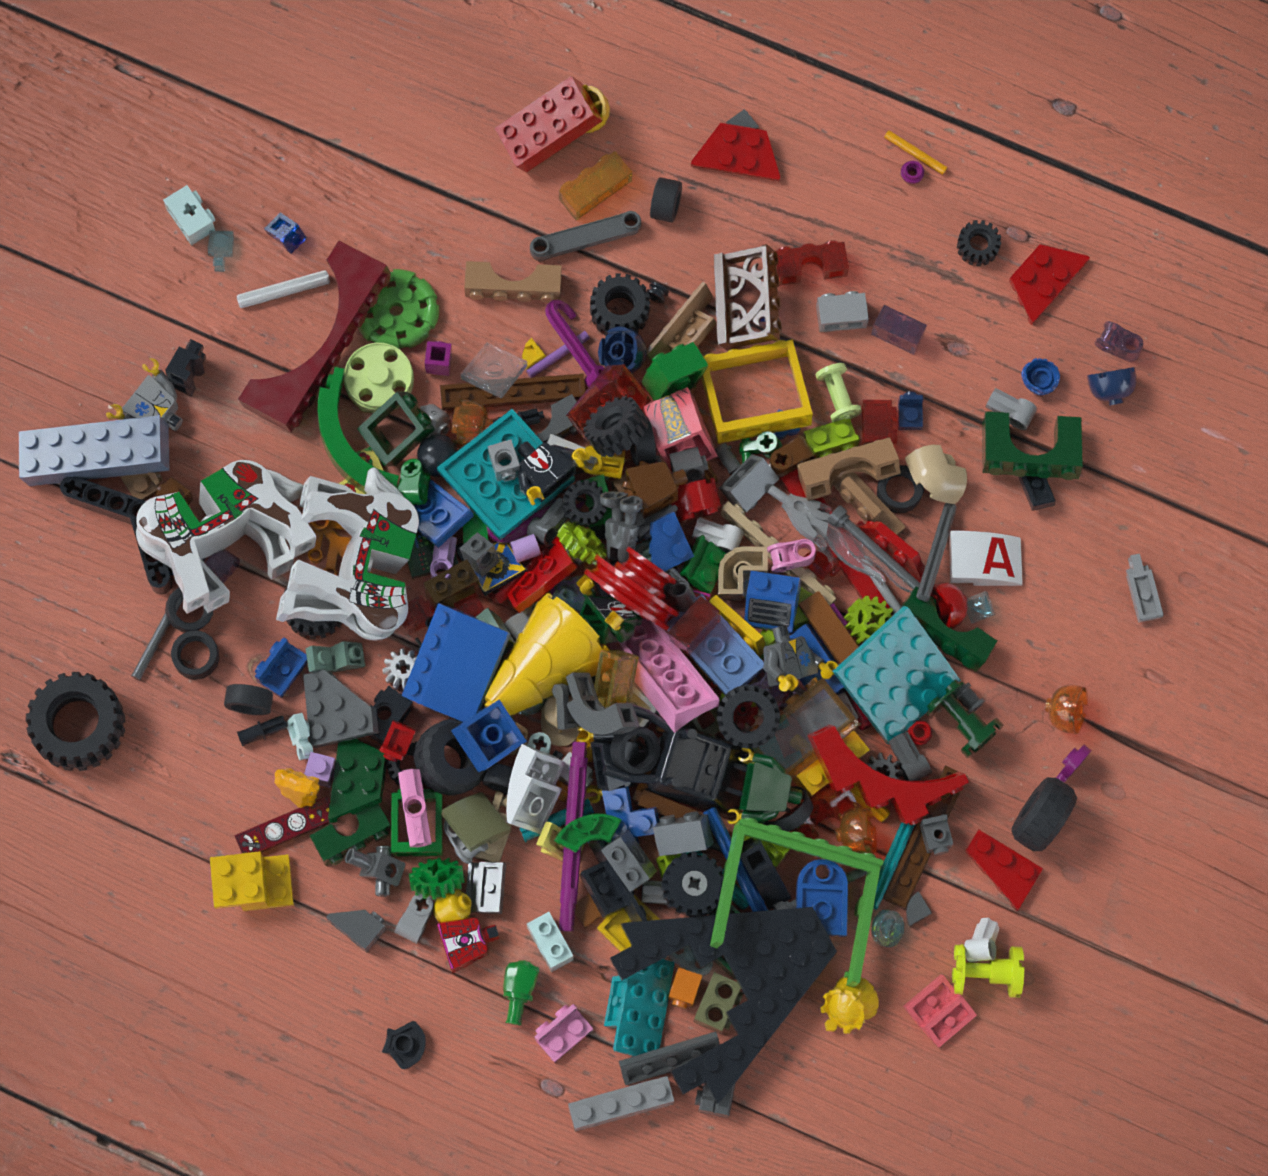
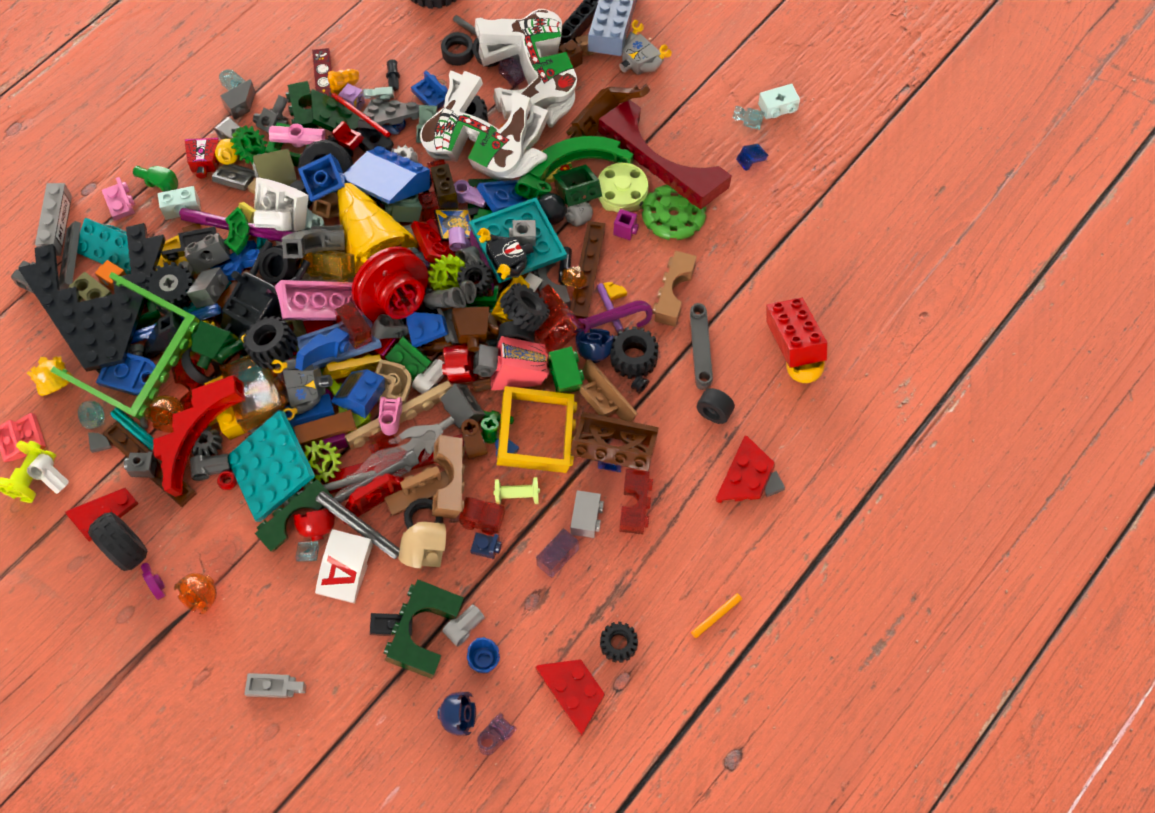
camera: 110 degrees right, 10 degrees down
(185, 366) = (660, 74): black hips -> none
(248, 699) = (412, 66): black tyre -> none
(251, 881) = (292, 47): yellow bracket -> none
(263, 435) = (606, 100): none -> reddish brown hinge
(283, 289) = (708, 142): white axle -> none
(326, 951) = (230, 79): none -> clear light blue plate
(363, 730) = (361, 115): none -> red axle
(405, 1044) = (153, 112): black animal -> none
(469, 421) = (569, 228): clear orange cylinder -> none
(480, 554) = (463, 211): dark grey brick -> none
(494, 370) = (606, 259): clear tile -> none
(537, 397) = (574, 277): none -> clear orange rock
(562, 776) = (278, 219): none -> white piece
(595, 185) = (741, 361): clear yellow brick -> none
(727, 458) = (490, 401): dark grey pin -> none
(731, 636) = (323, 347): none -> blue slope
(832, 438) = (482, 479): lime bracket -> none
(912, 166) = (698, 601): magenta plate -> none
(968, 698) = (237, 522): dark grey bush -> none
(970, 725) = (212, 511): dark green piece -> none

